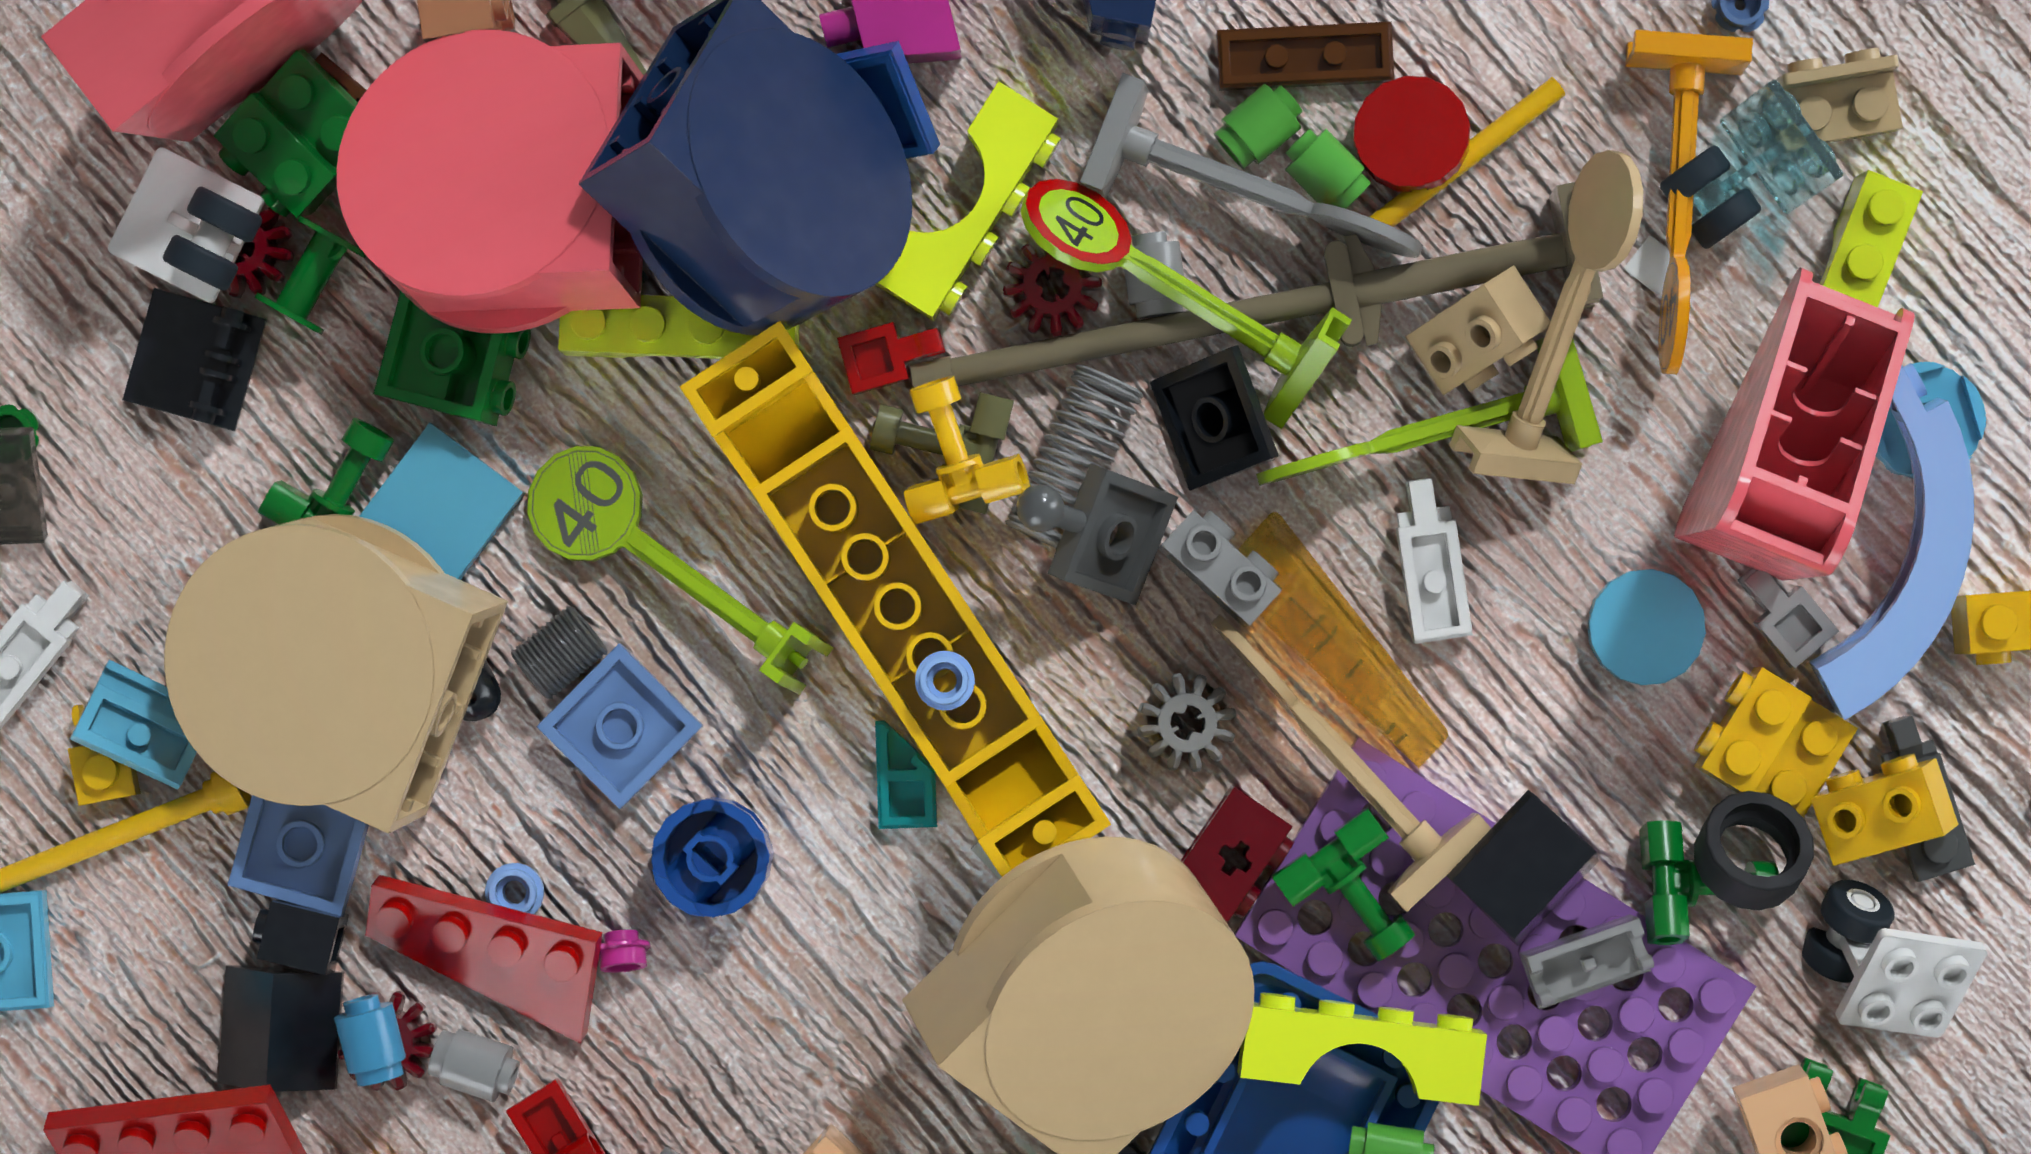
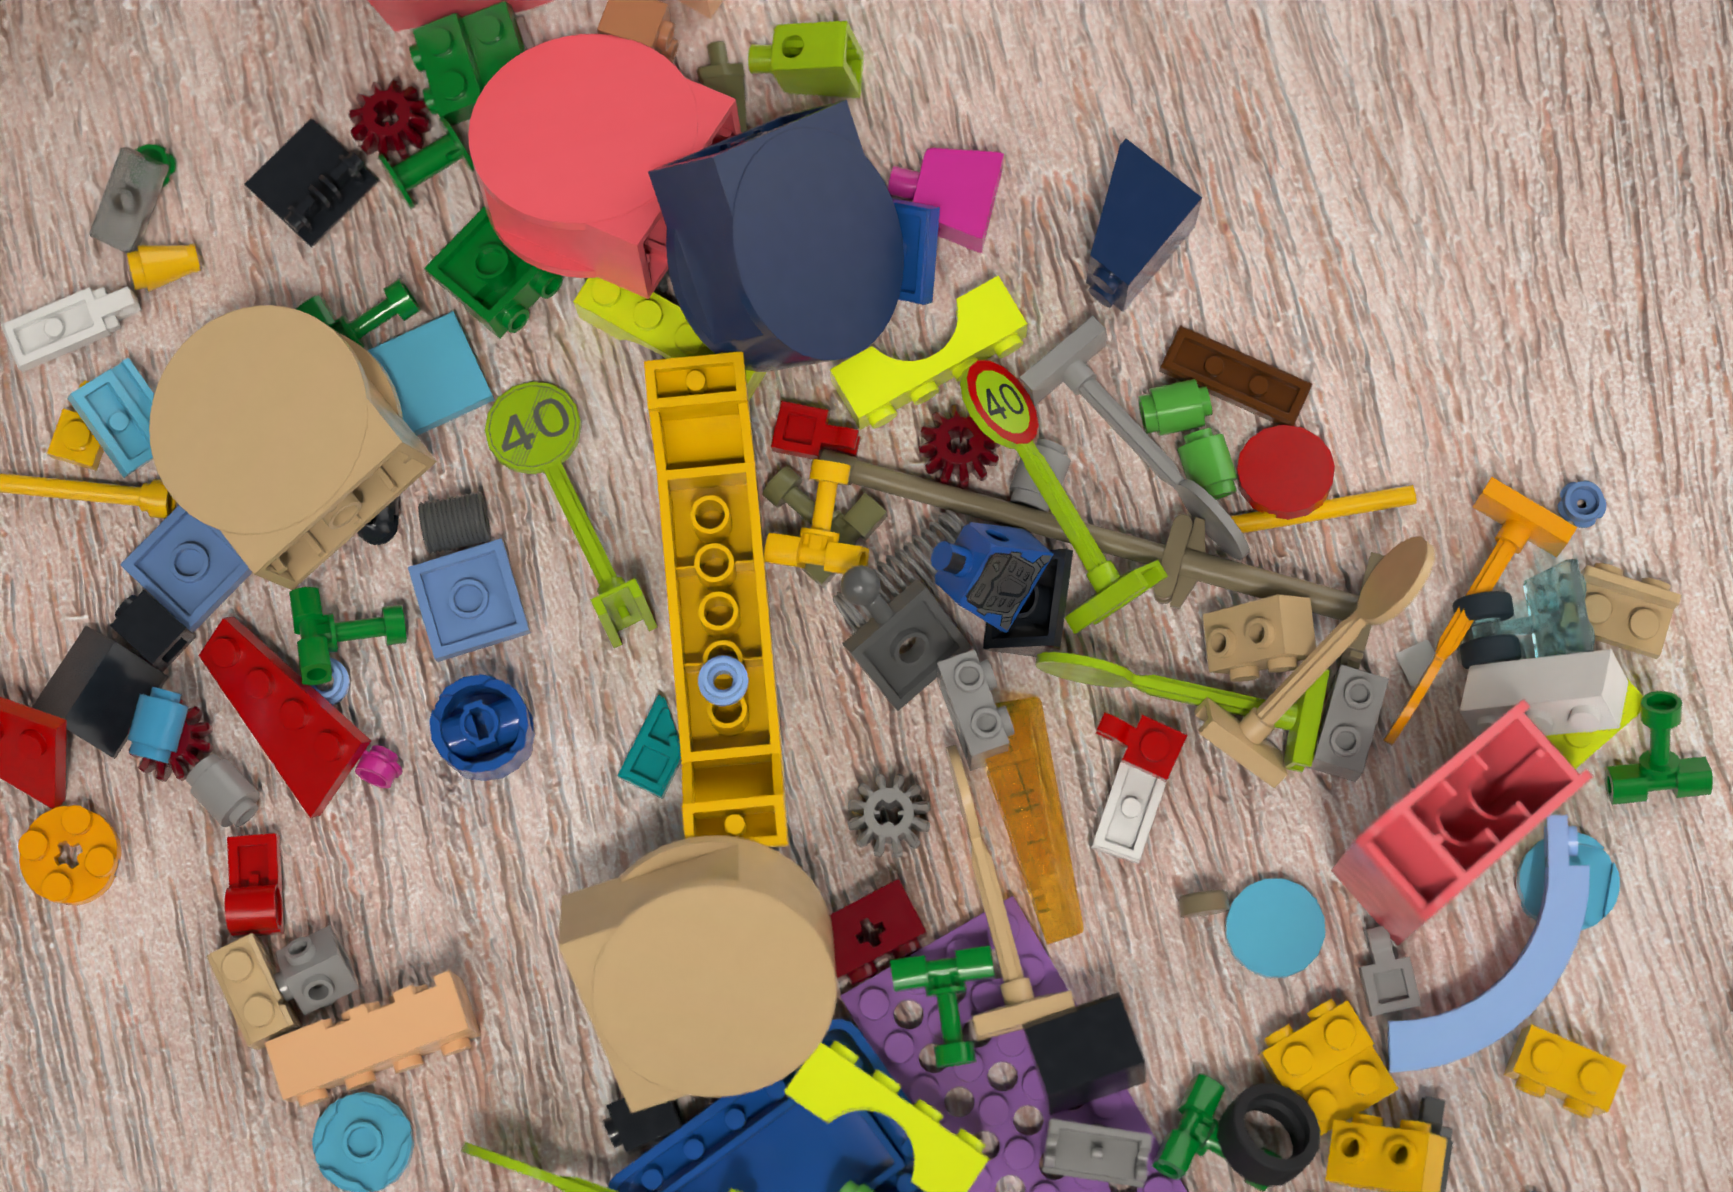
camera: 30 degrees right, 10 degrees down
(84, 536) = (161, 264): none -> yellow cone
(187, 225) = (357, 78): white plate -> none
(486, 847) = (321, 633): none -> green bar
(1161, 409) = (990, 570): none -> torso
(1422, 508) = (1149, 746): none -> red plate
(1561, 642) = (1203, 903): none -> dark tan tile
(1617, 371) = (1349, 723): none -> light grey brick
(1825, 231) = (1563, 690): none -> white brick
(1960, 247) = (1659, 767): none -> green bar

